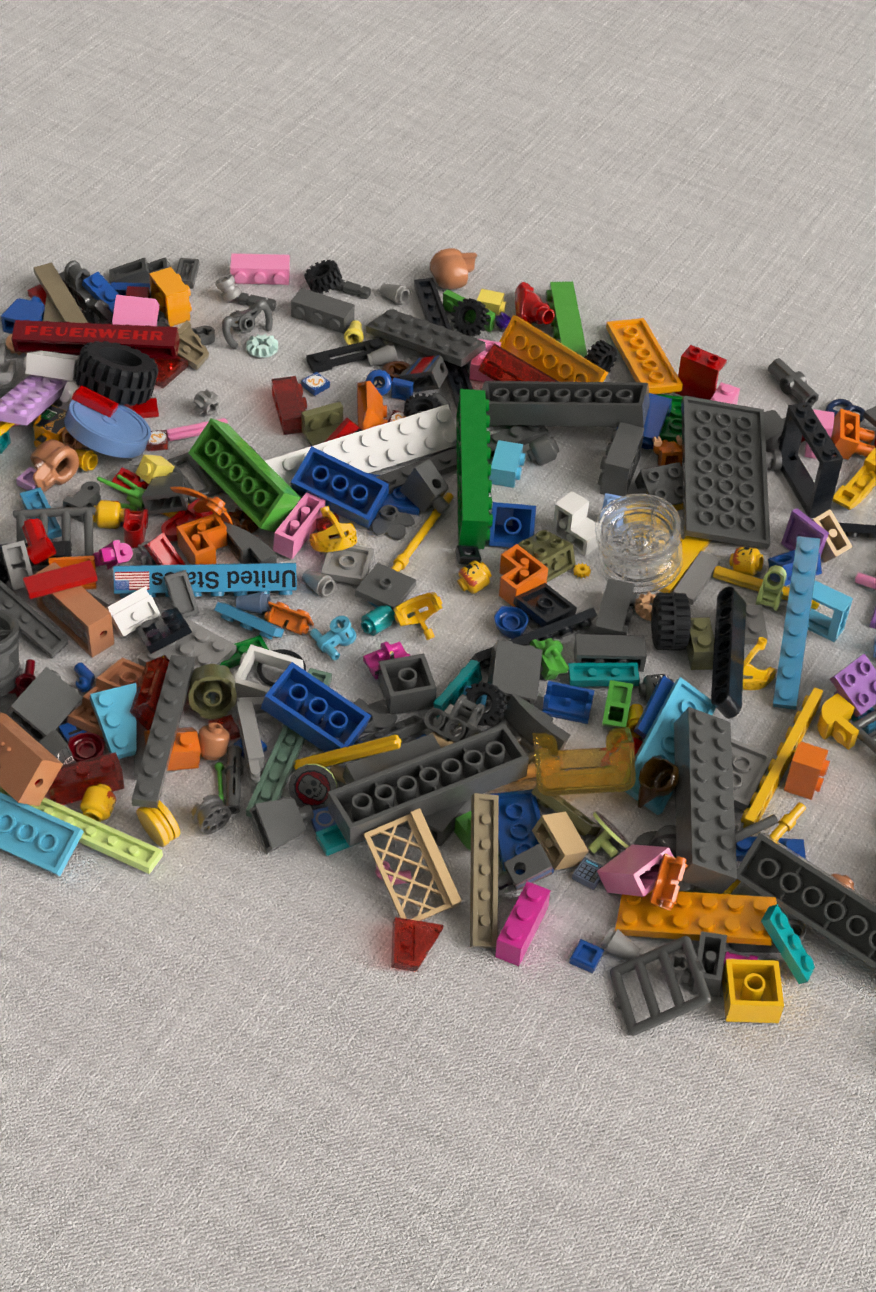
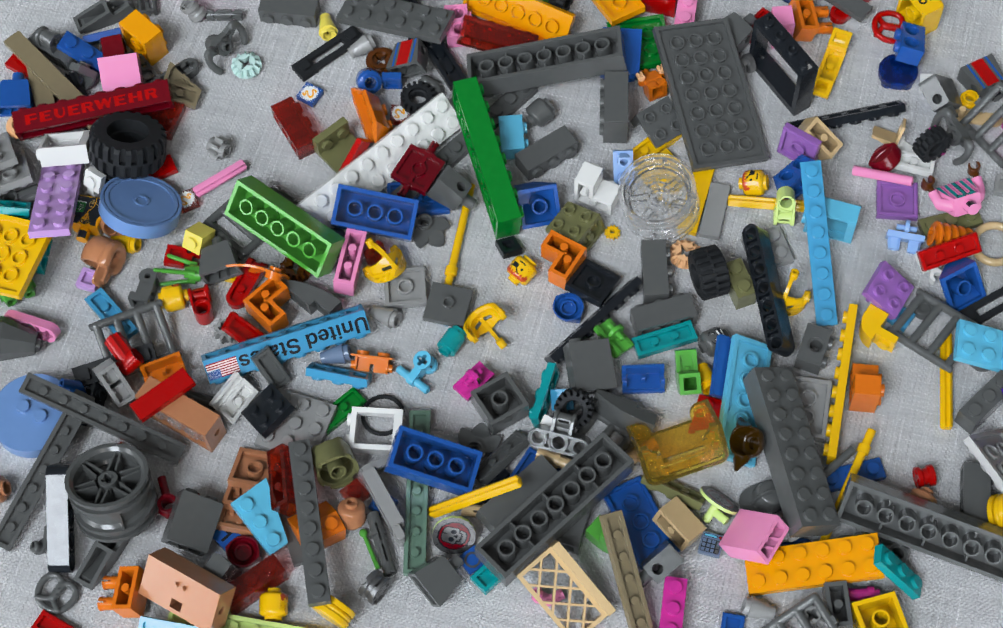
camera: 10 degrees left, 15 degrees up
(86, 677) = (216, 477): blue arm -> none
(95, 401) = (121, 185): red tile -> none
(113, 554) = (195, 345): dark pink hips -> none
(397, 462) = (418, 169): none -> dark red plate
(537, 485) = (546, 153): none -> dark grey brick
(666, 884) = (785, 540): orange hinge -> none
(762, 721) = (812, 360): none -> dark grey brick
(849, 867) = (924, 476): none -> red wheel

